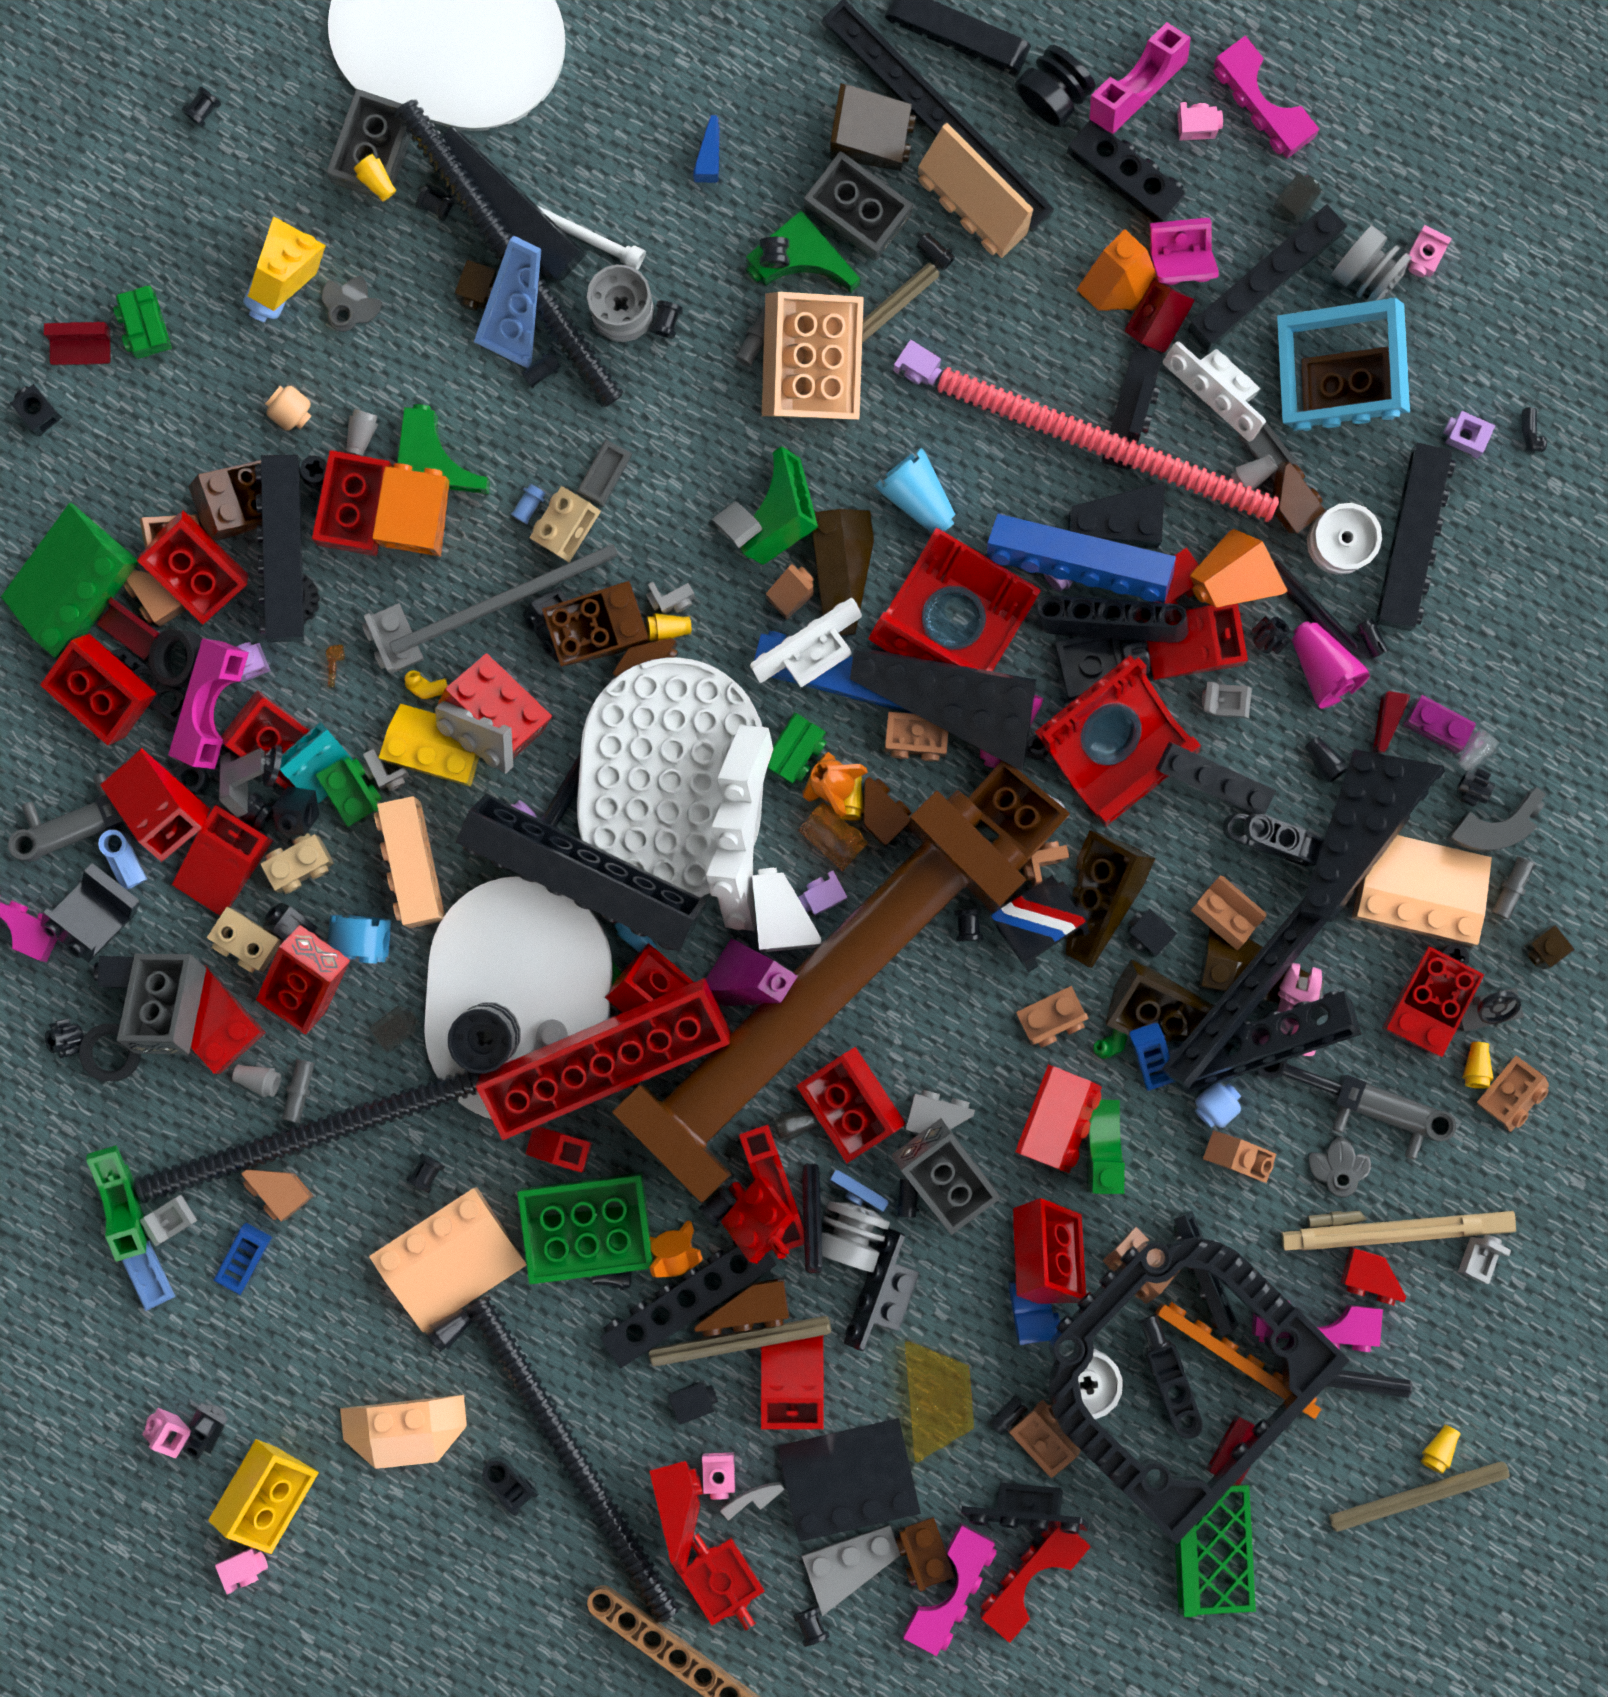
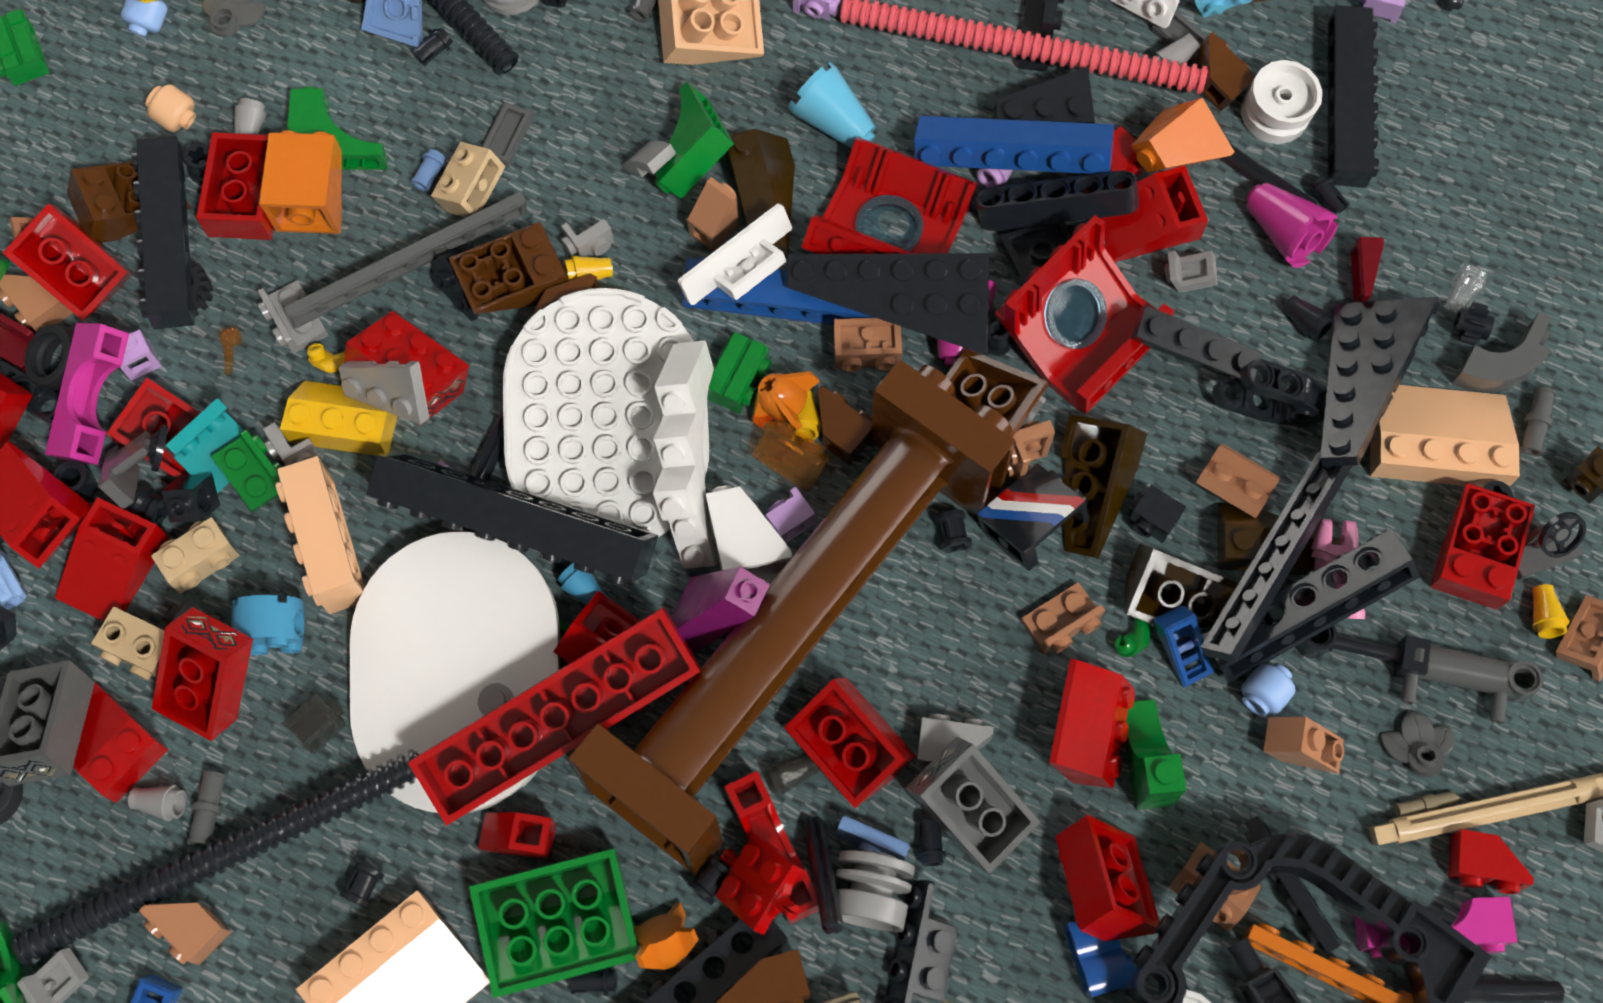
camera: 10 degrees left, 15 degrees down
(466, 1037) = (396, 704): black wheel -> none
(1271, 635) = (1225, 202): black gear -> none
(1439, 724) = (1420, 267): magenta brick -> none

